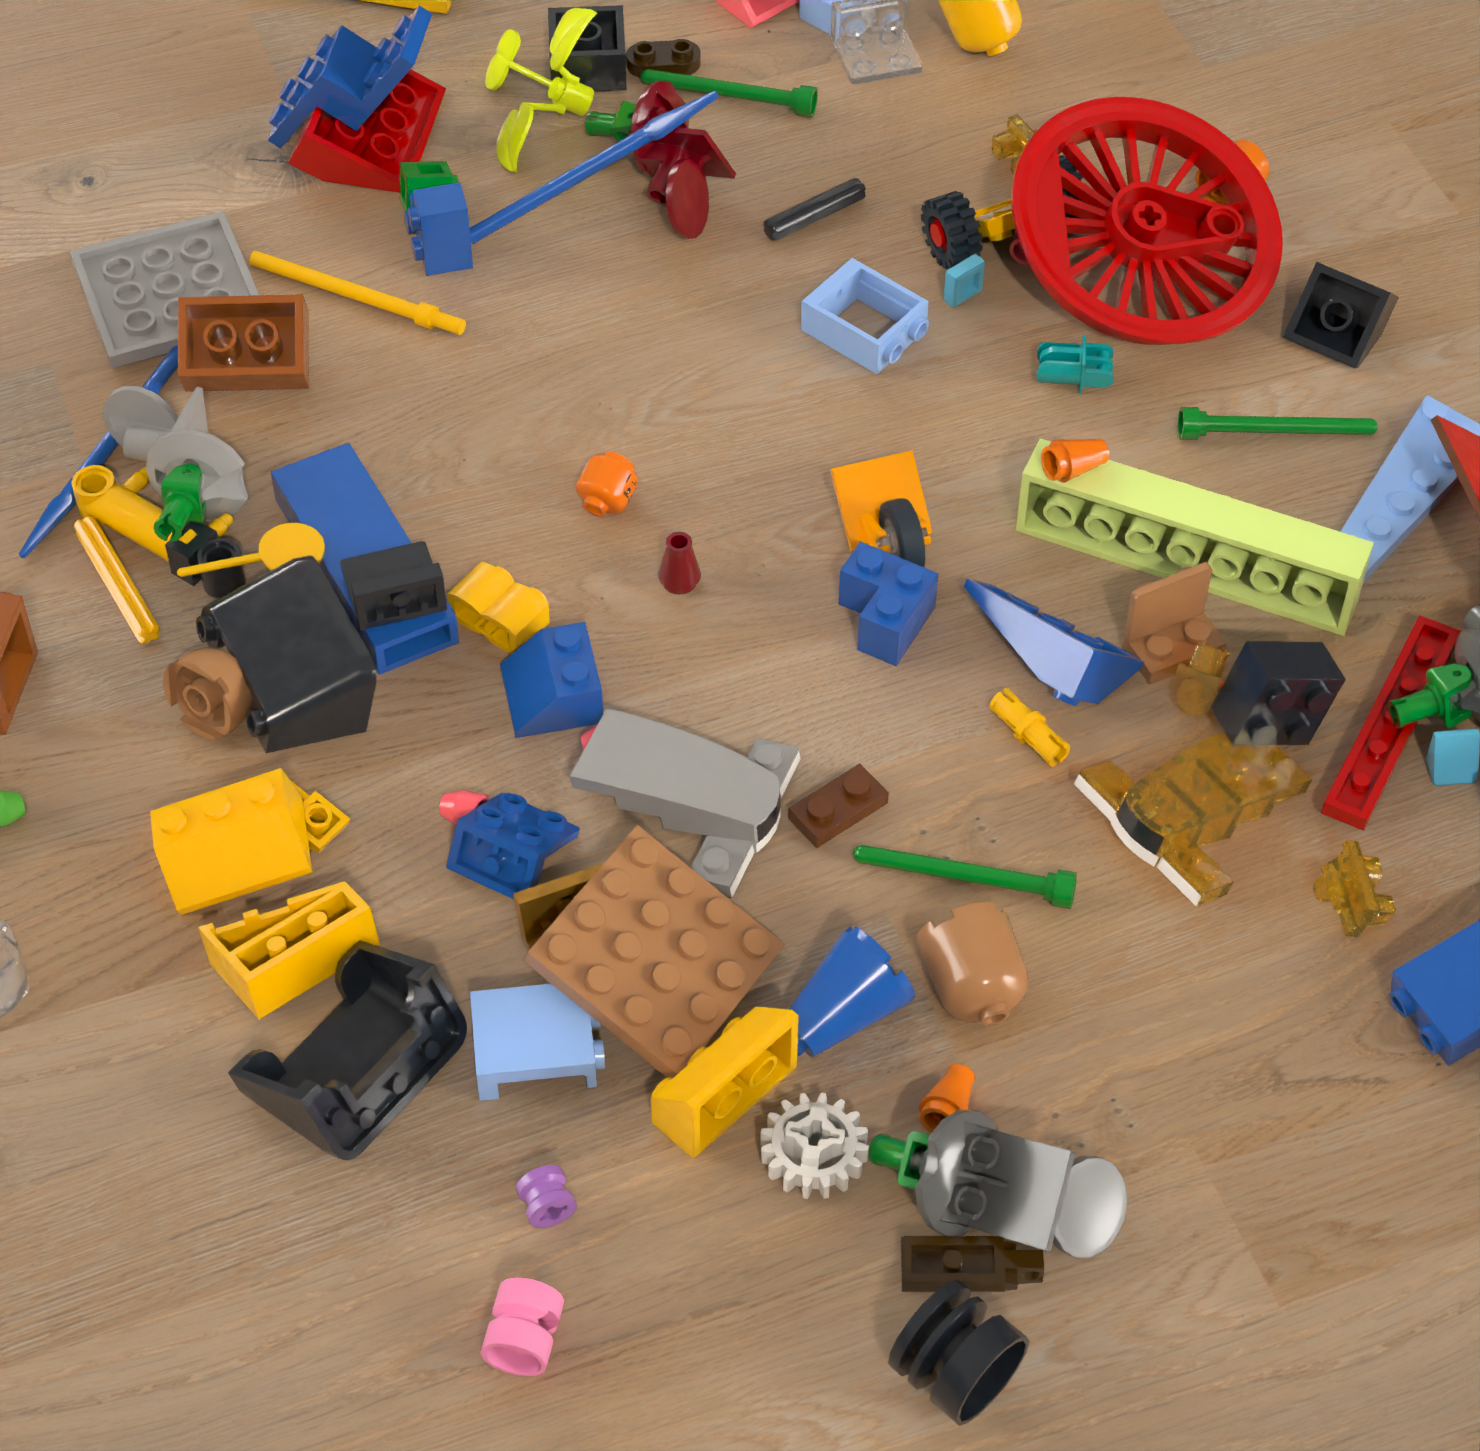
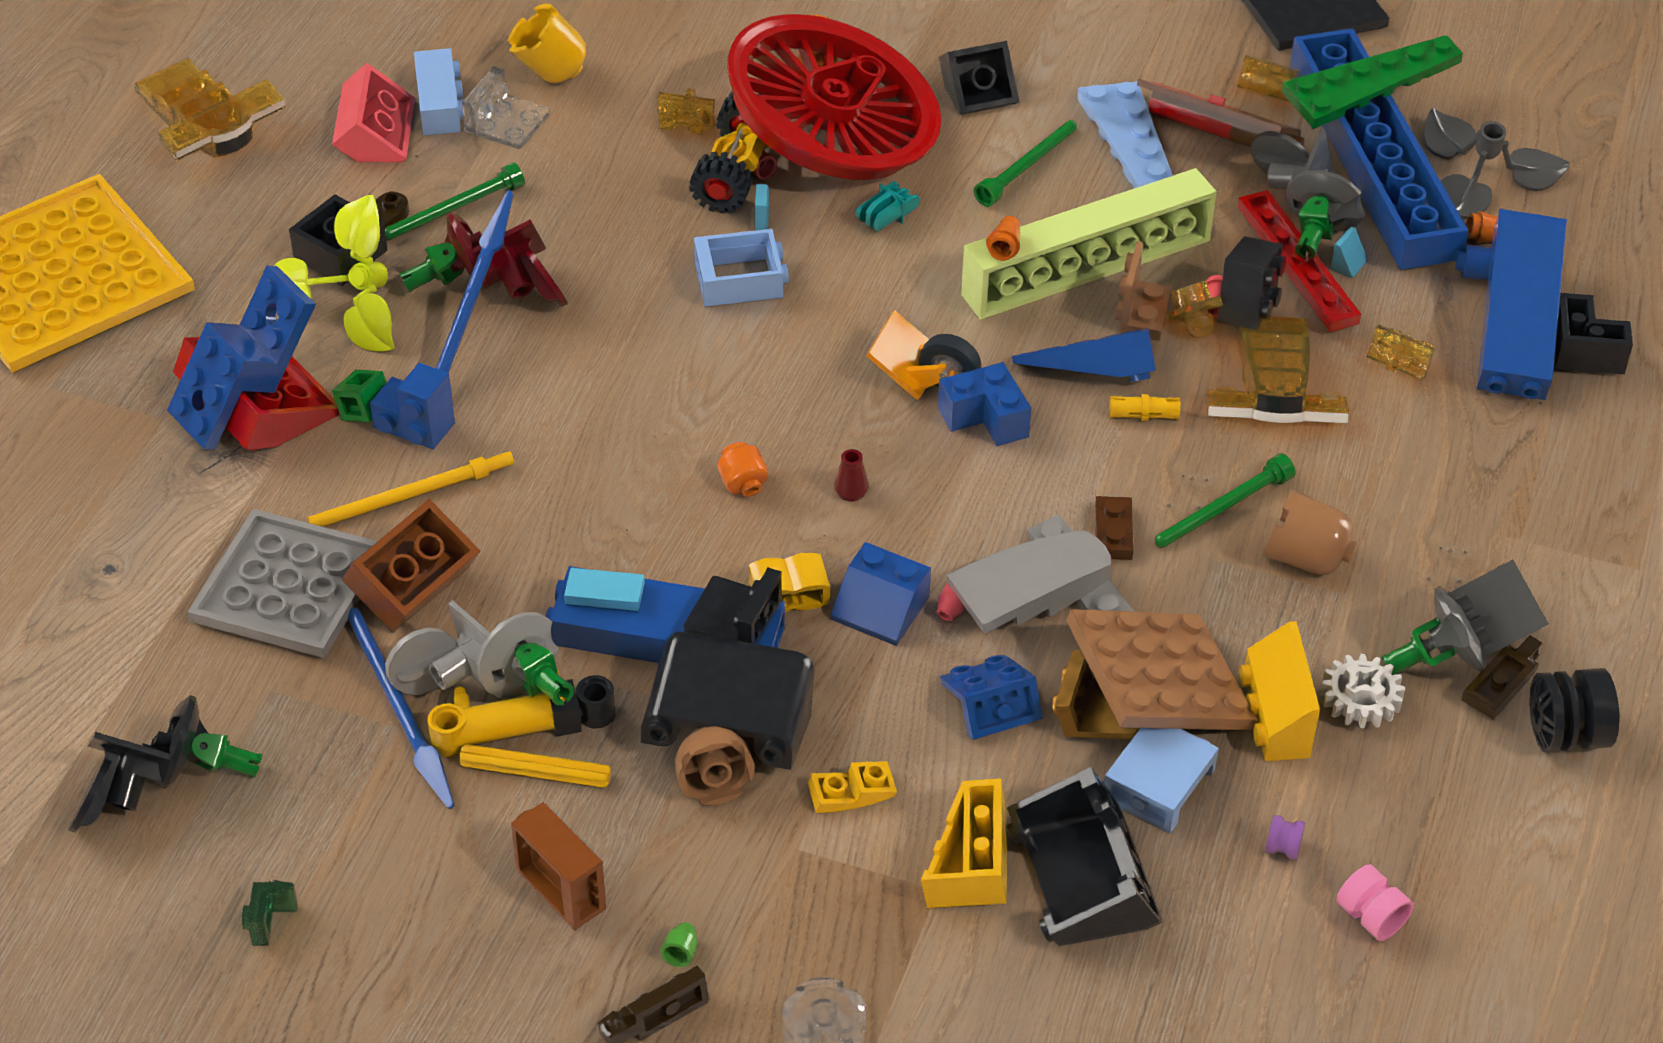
camera: 50 degrees left, 5 degrees down
(232, 841) = (857, 826): yellow slope -> none
(275, 549) = (632, 650): yellow piece -> none
(337, 481) = (604, 589): none -> medium azure tile
(459, 803) = (937, 700): coral hose -> none
(814, 209) = (611, 234): black axle -> none
(848, 993) = (1270, 593): blue cone -> none
(947, 1096) = (1386, 615): orange cone -> none

